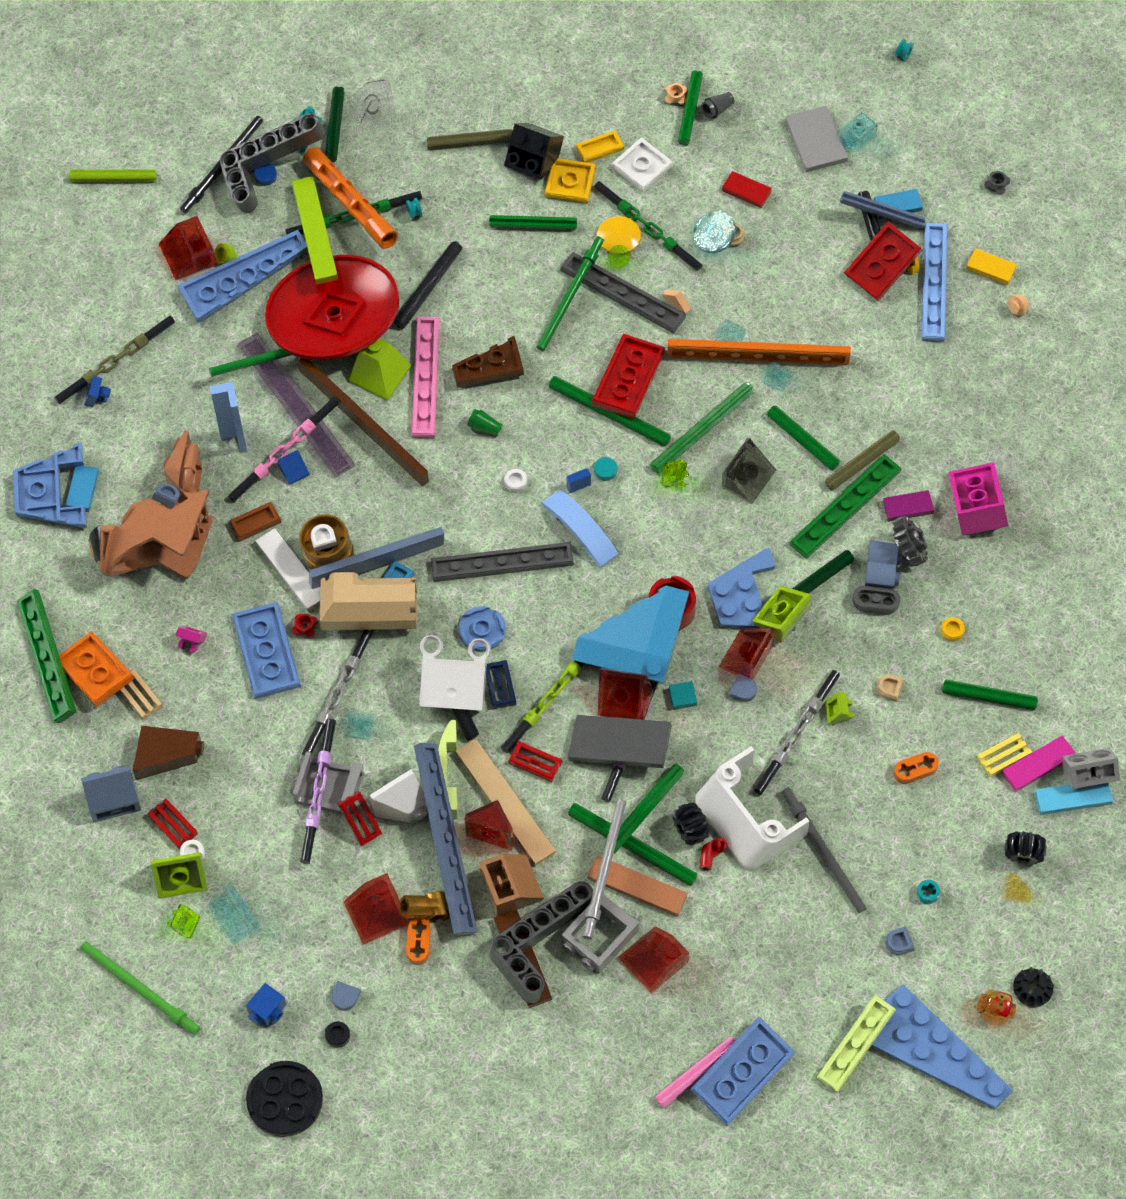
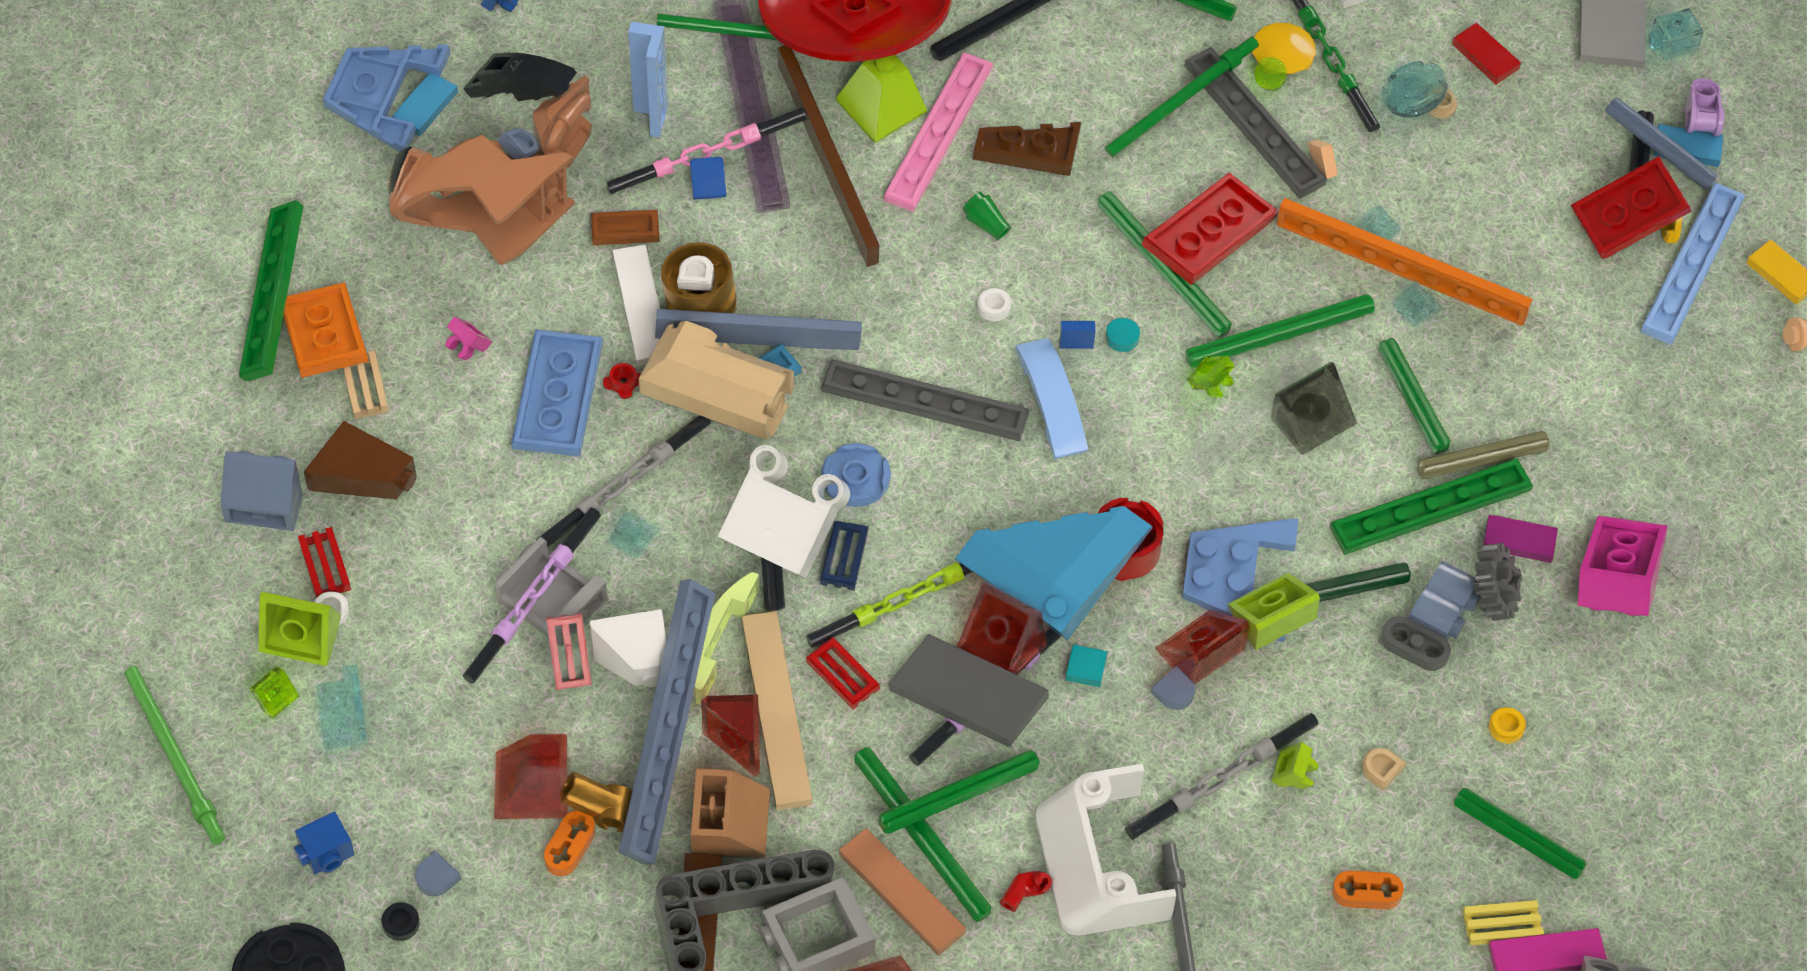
camera: 20 degrees right, 5 degrees down
(142, 446) = (522, 75): none -> black slope
(593, 913) = (817, 897): light grey bar -> none
(691, 823) = (1013, 836): black gear -> none
(899, 176) = (1704, 108): none -> lavender piece

